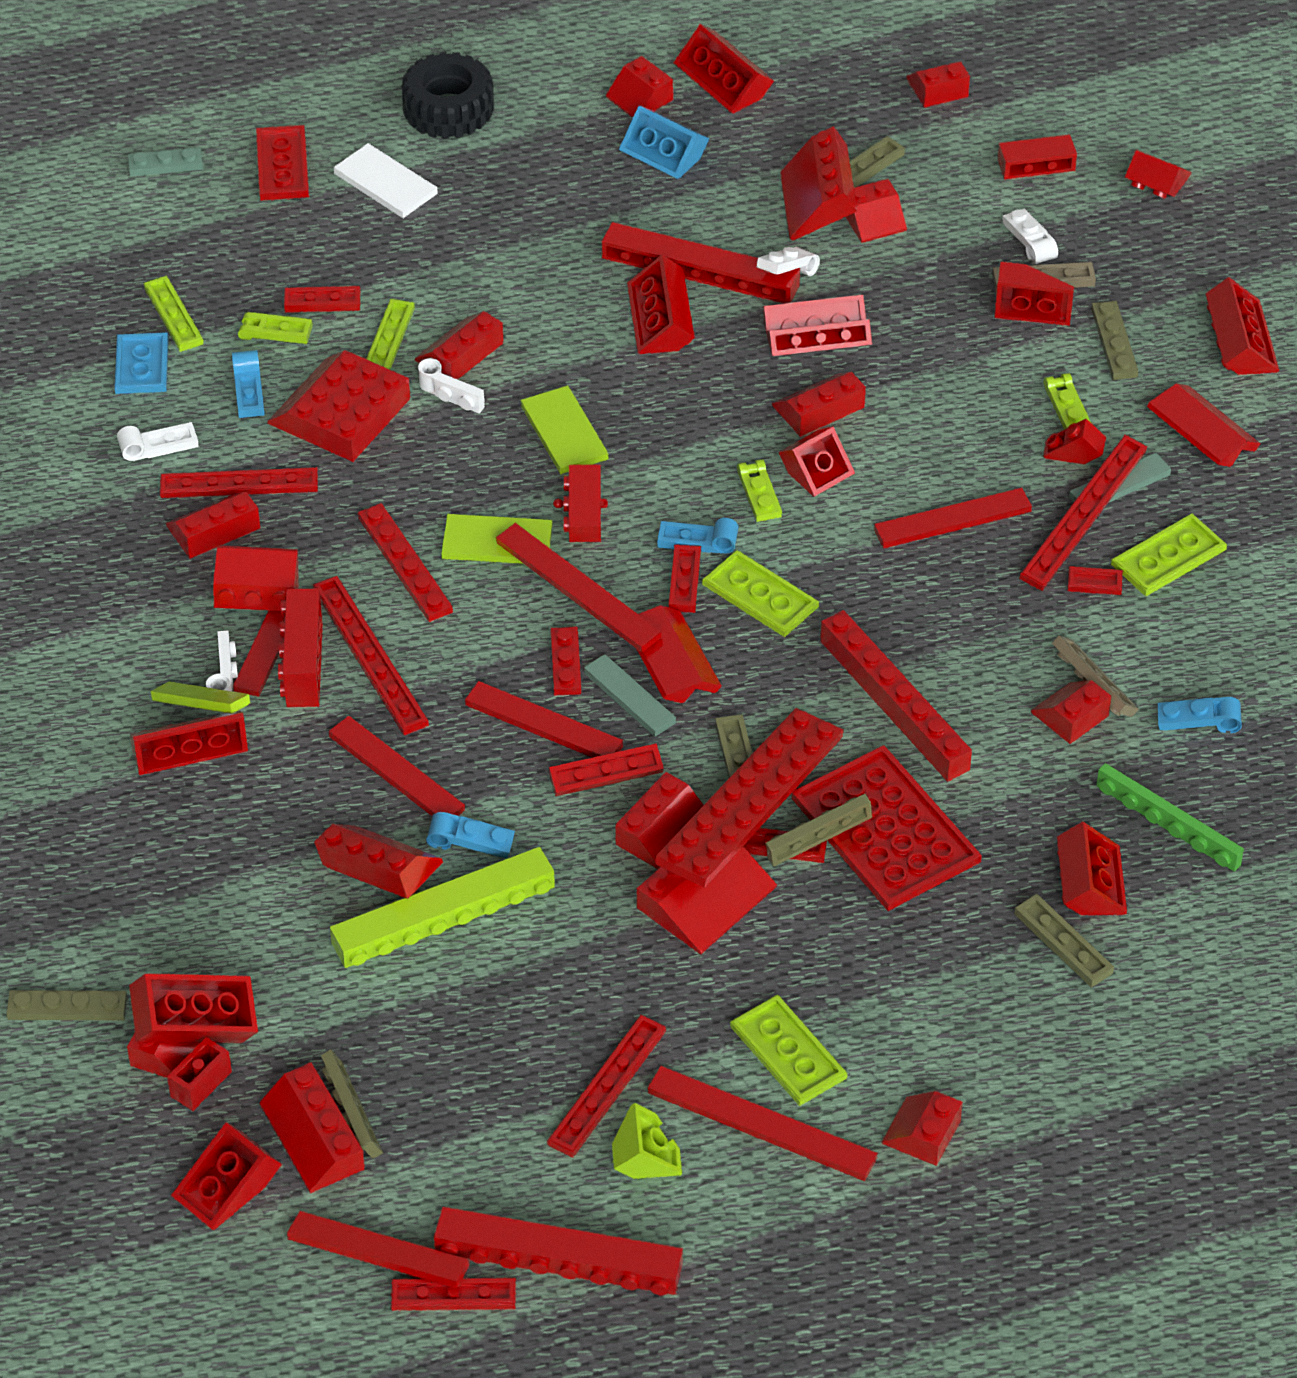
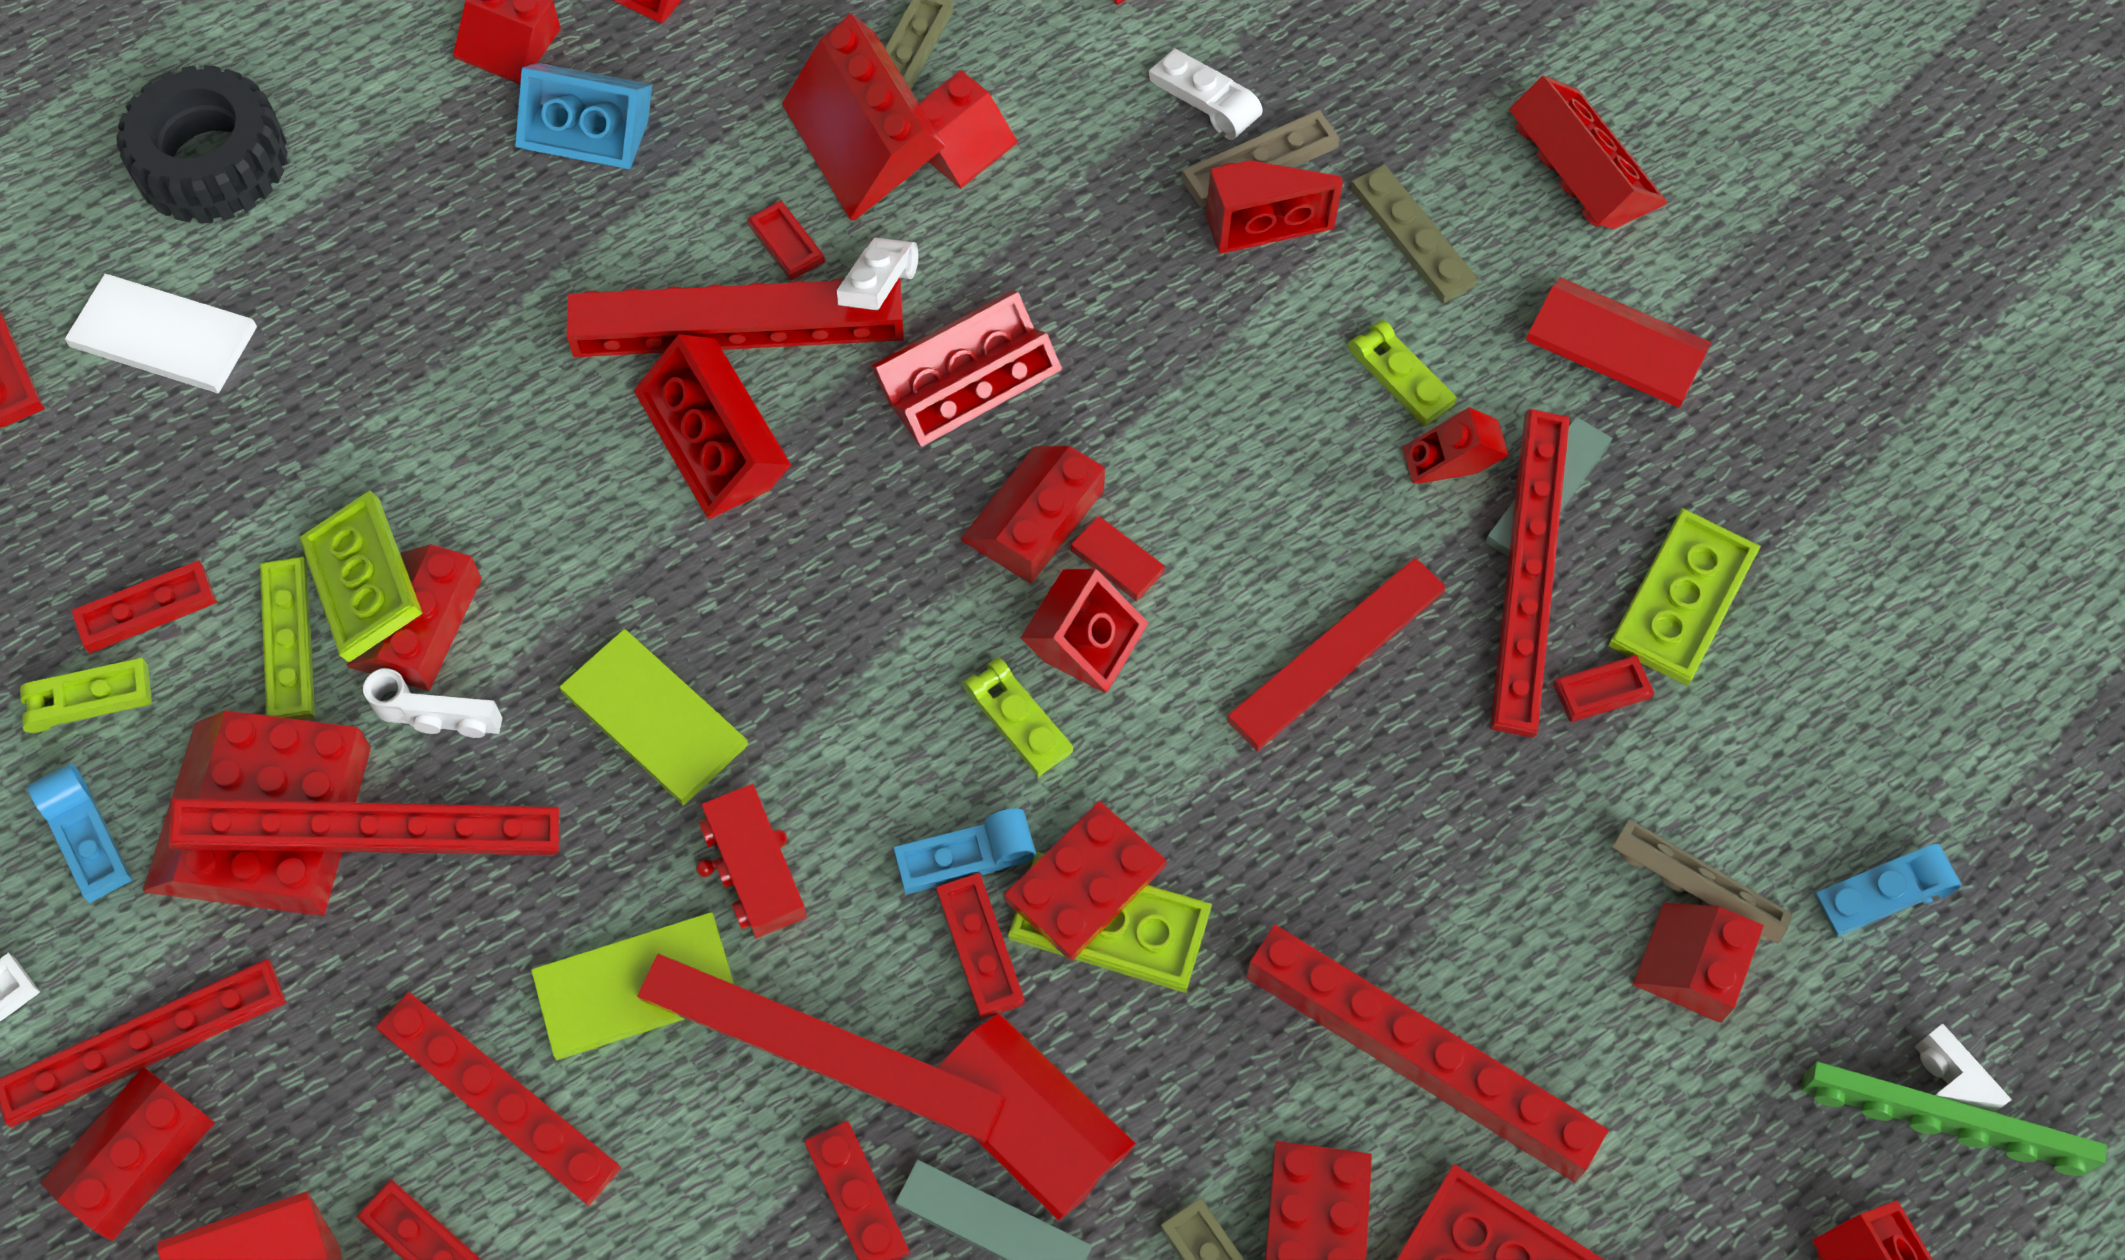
camera: 25 degrees left, 15 degrees up
(394, 420) = (363, 827): none -> red tile
(440, 314) = (360, 576): none -> lime tile
(748, 236) = (786, 240): none -> red tile
(755, 567) = (1085, 880): none -> red plate
(854, 438) = (1117, 558): none -> red tile
(1184, 796) = (1964, 1075): none -> white slope

